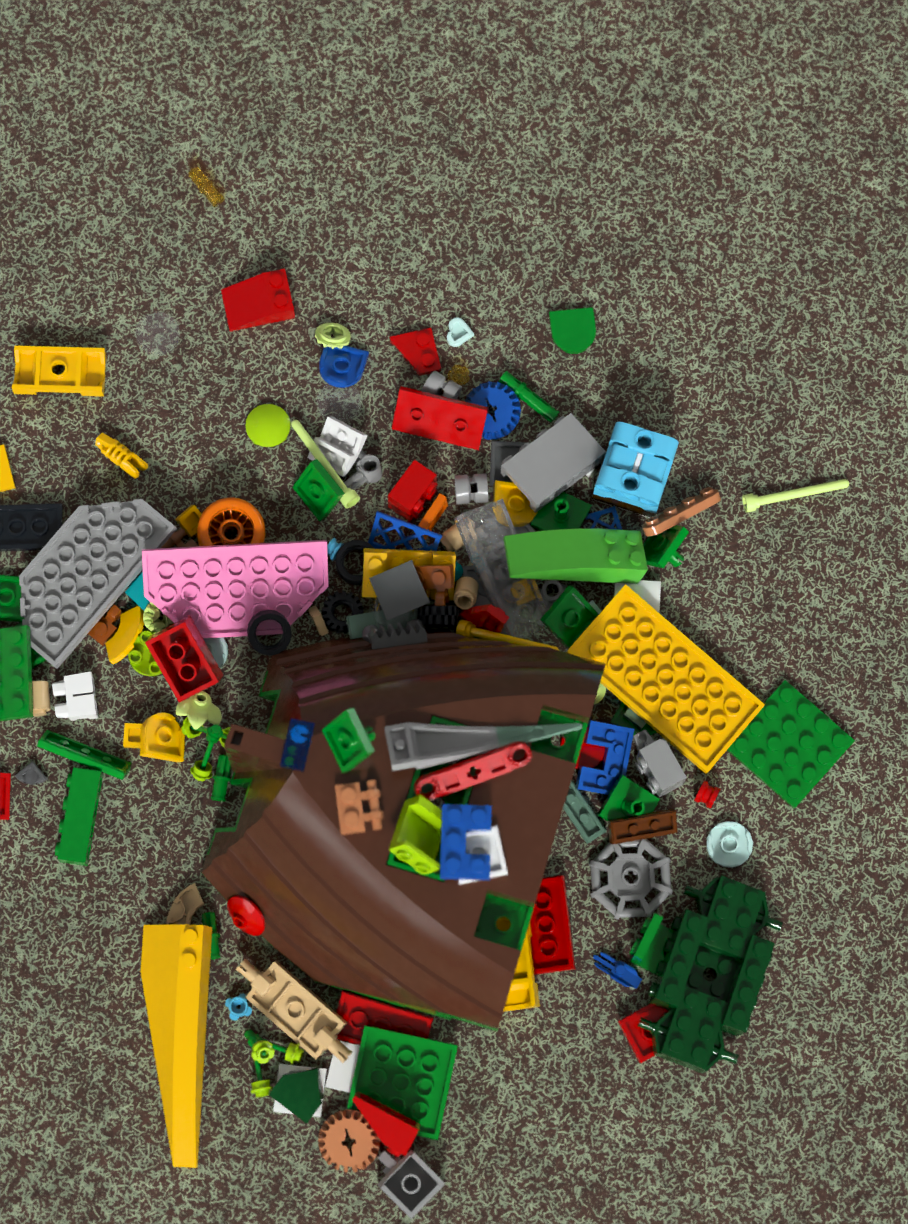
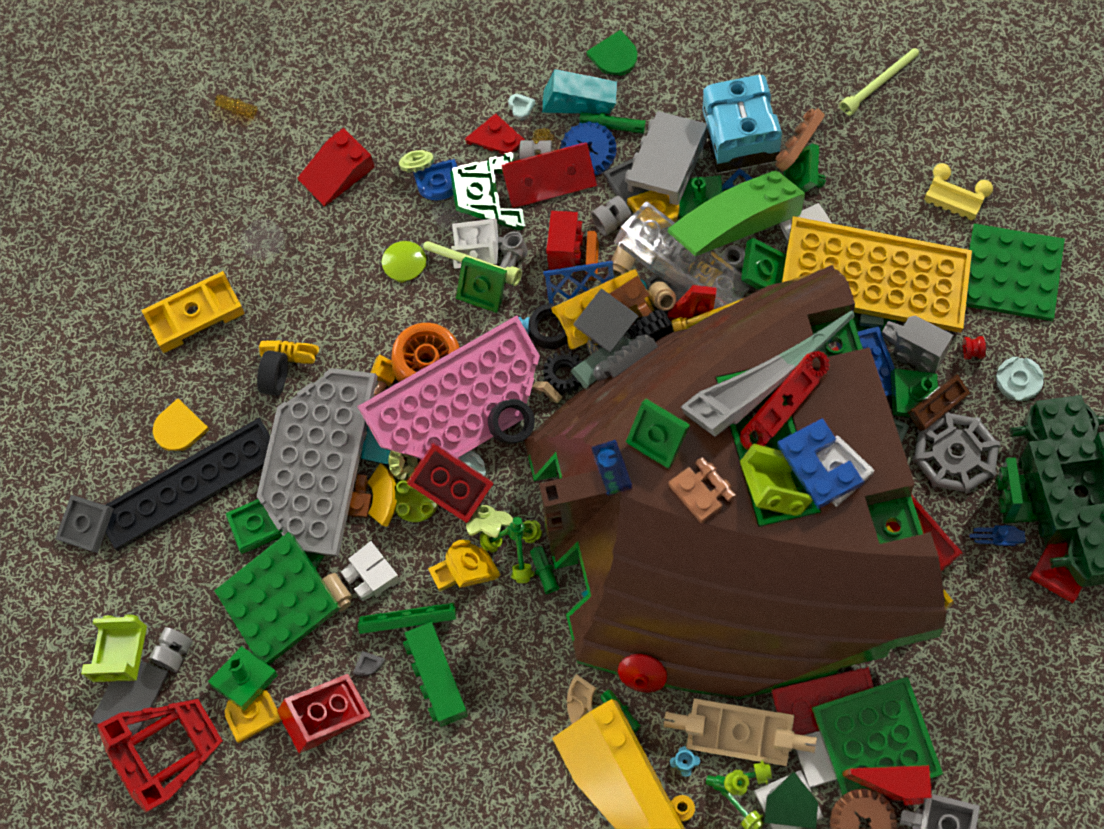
camera: 20 degrees left, 10 degrees down
(94, 469) = (272, 373): none -> black tyre
(220, 1043) = (682, 799): none -> yellow plate
(367, 398) = (477, 192): none -> wing
(514, 353) = (577, 92): none -> teal wedge
(784, 646) = (955, 197): none -> light yellow gear

